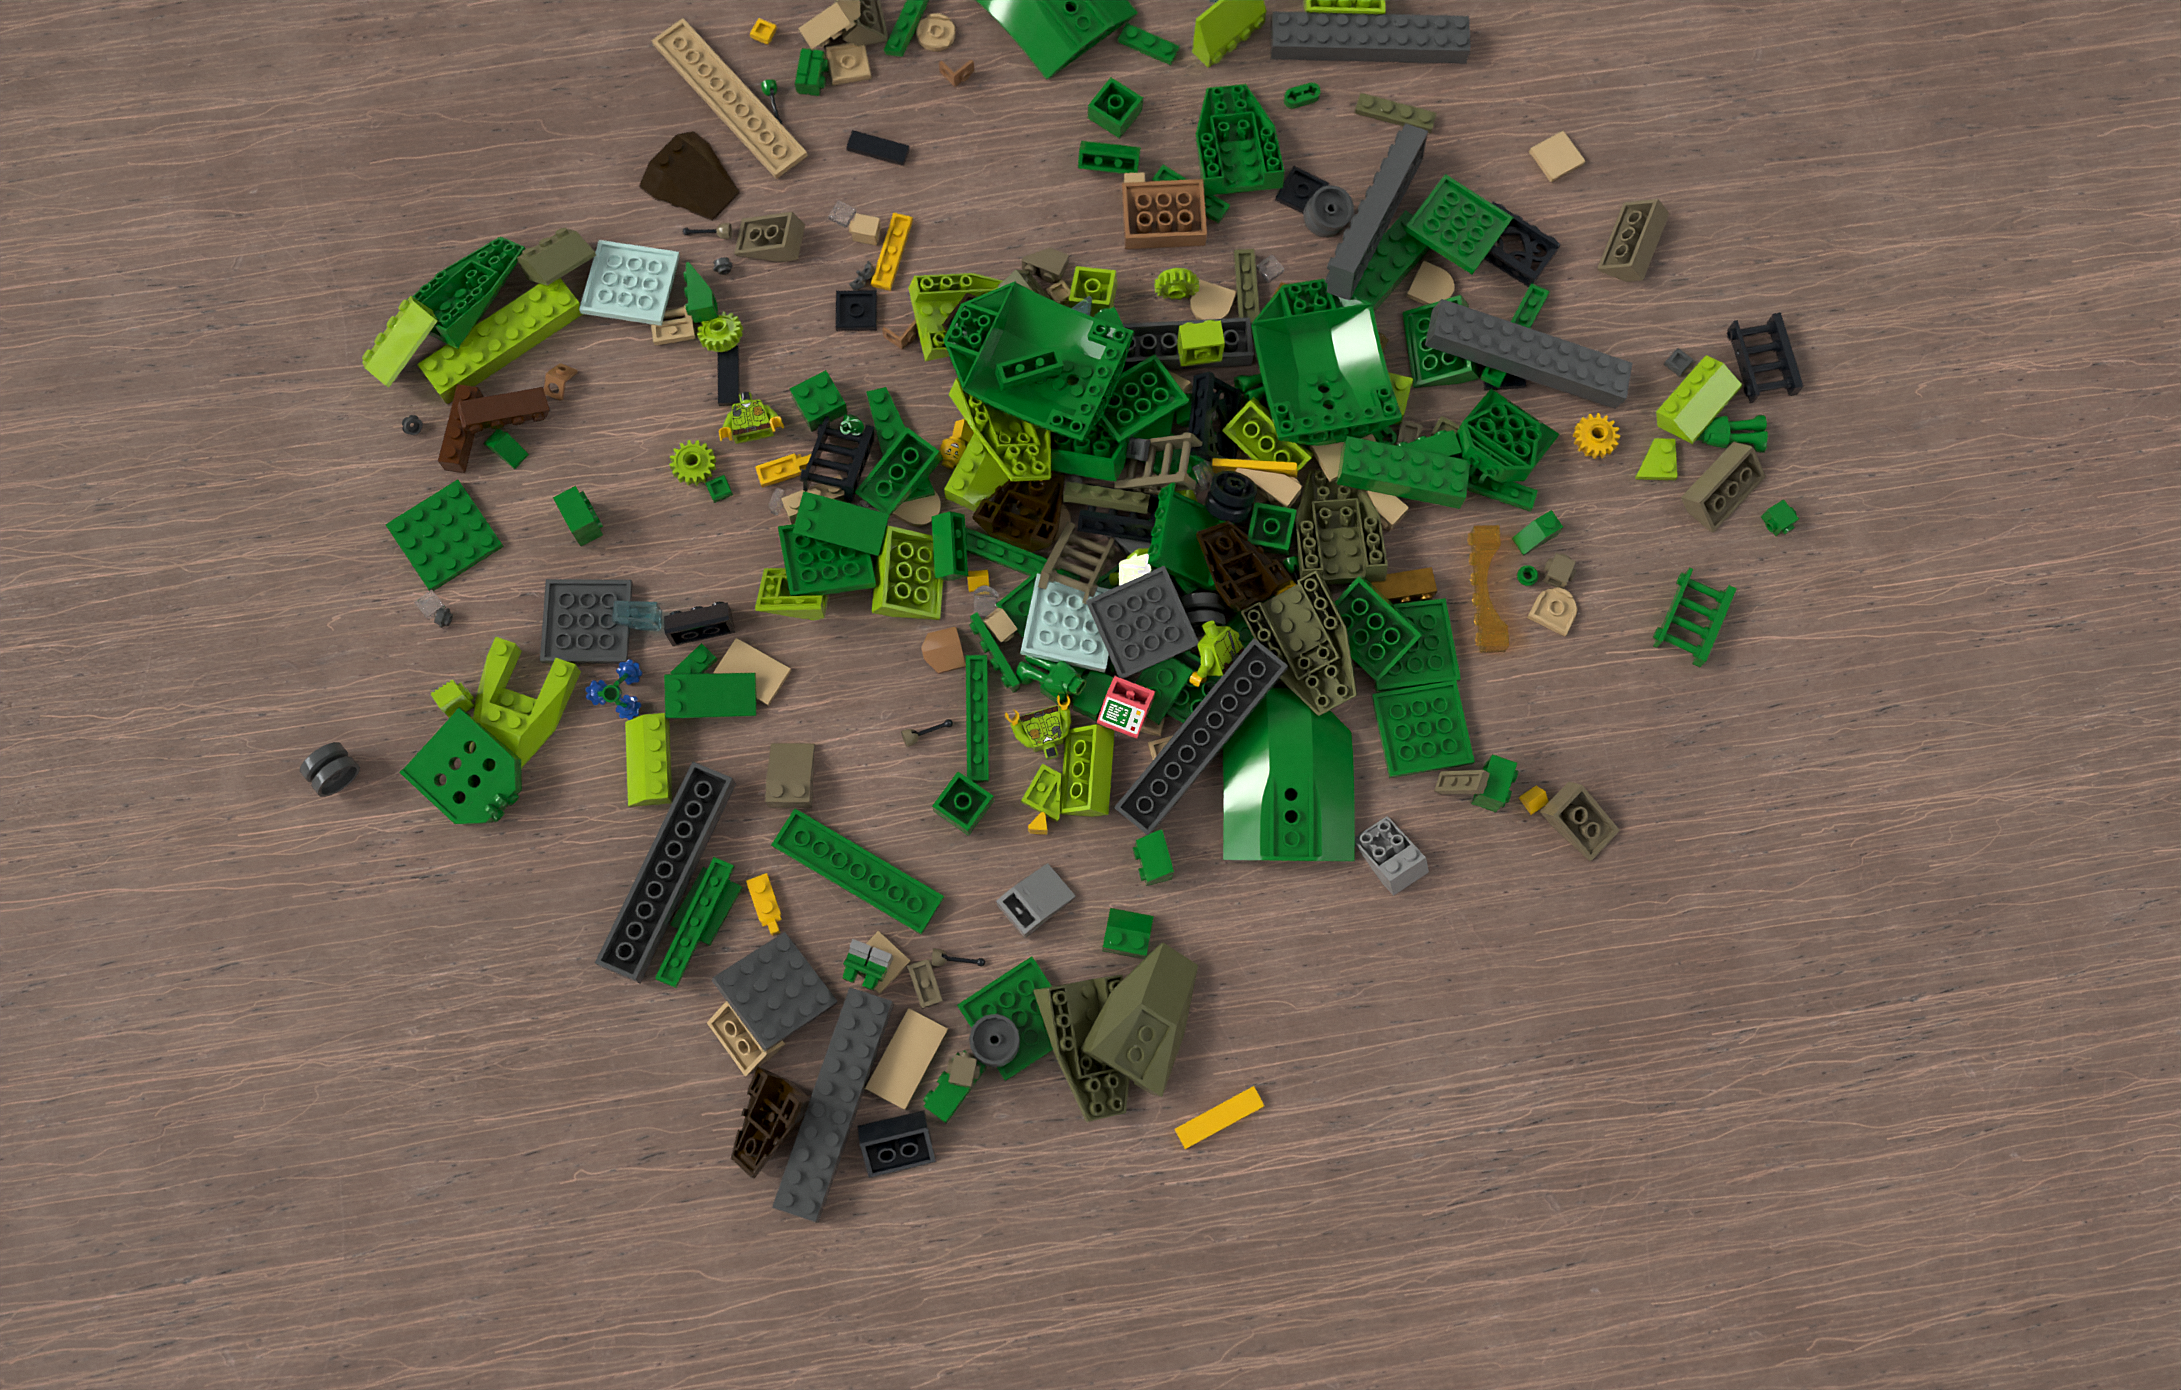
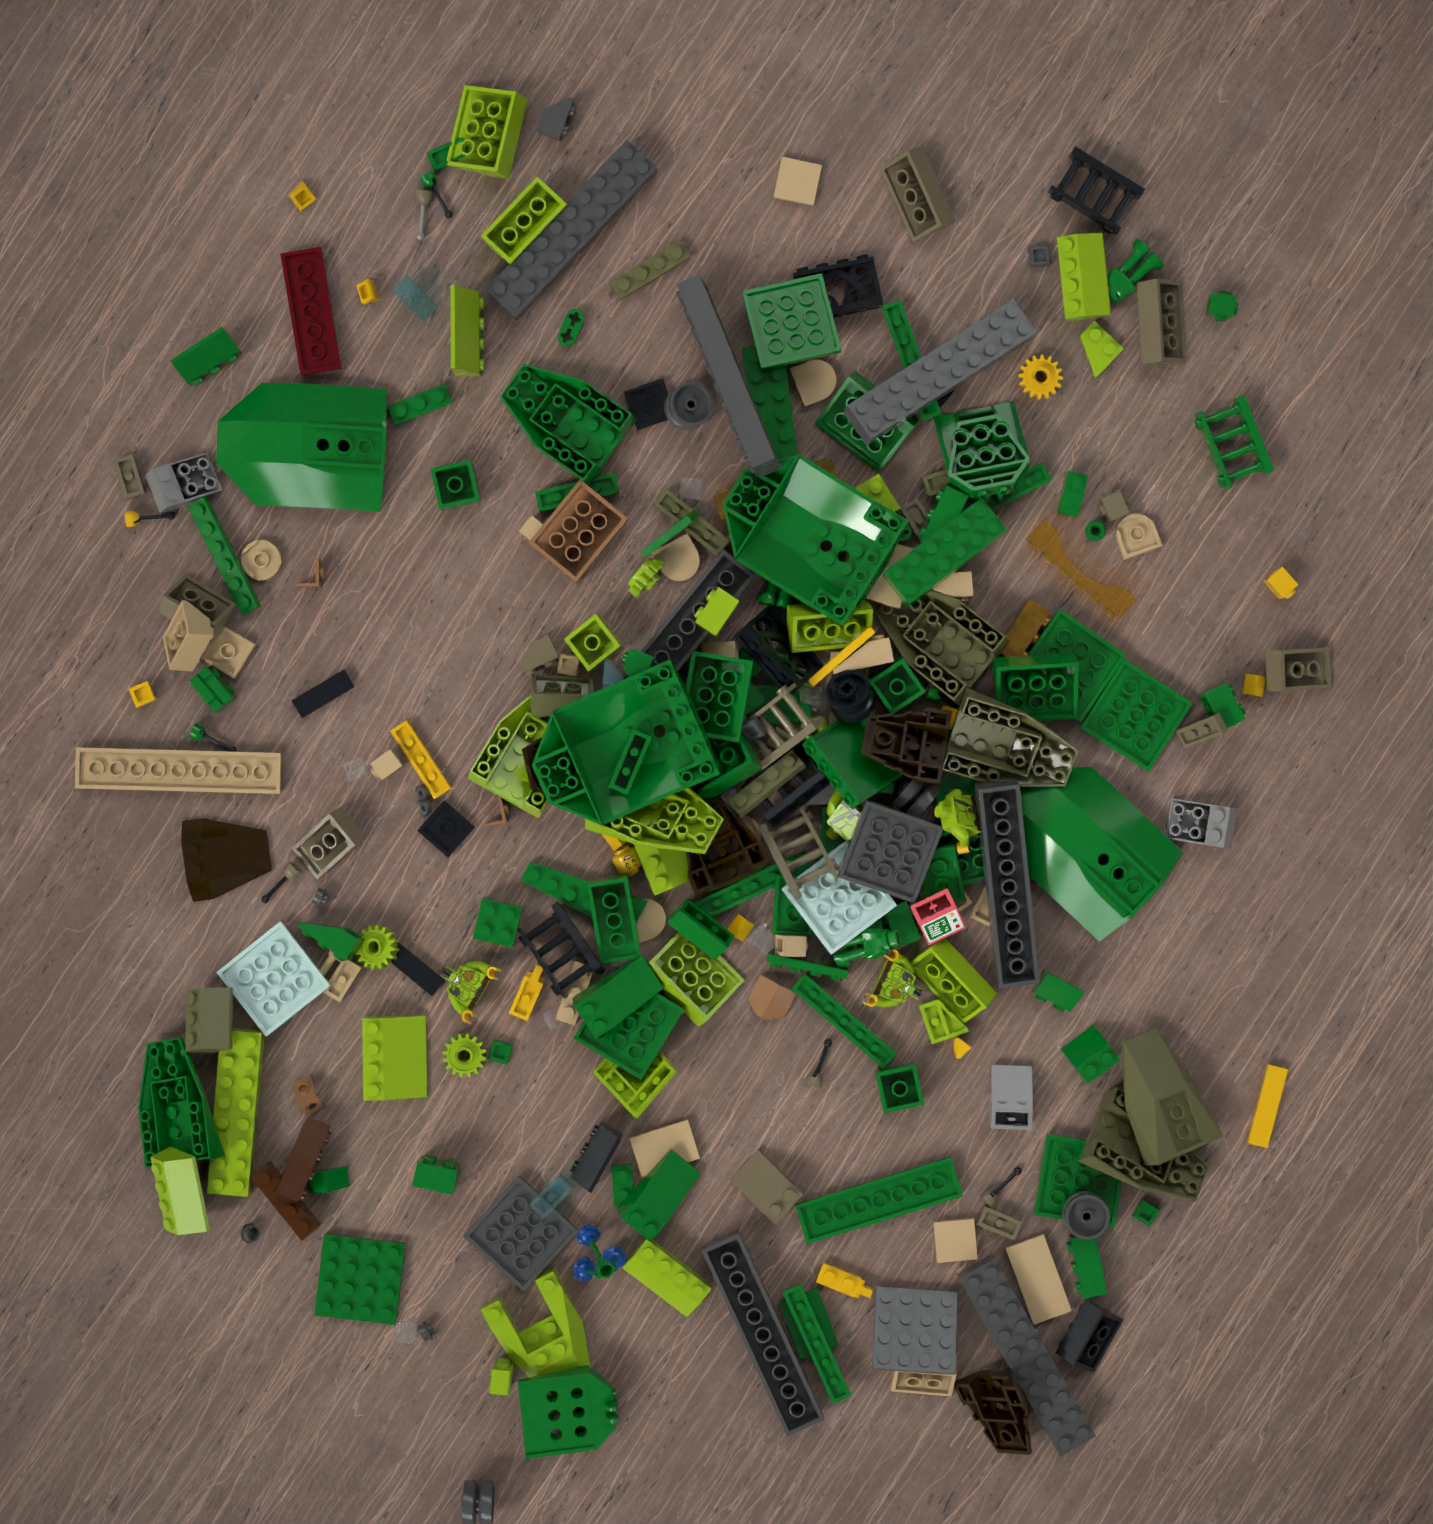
camera: 50 degrees left, 15 degrees up
(645, 414) = (394, 1057): none -> lime slope
(852, 425) = (546, 915): green piece -> none
(858, 962) = (946, 1259): green hips -> none
(963, 1070) = (1086, 1253): dark tan brick -> none
(1041, 1098) = (1145, 1212): none -> green tile
(1108, 157) = (493, 528): green brick -> none
(1226, 271) = (671, 532): none -> green tile
(1629, 747) = (1281, 583): none -> yellow brick

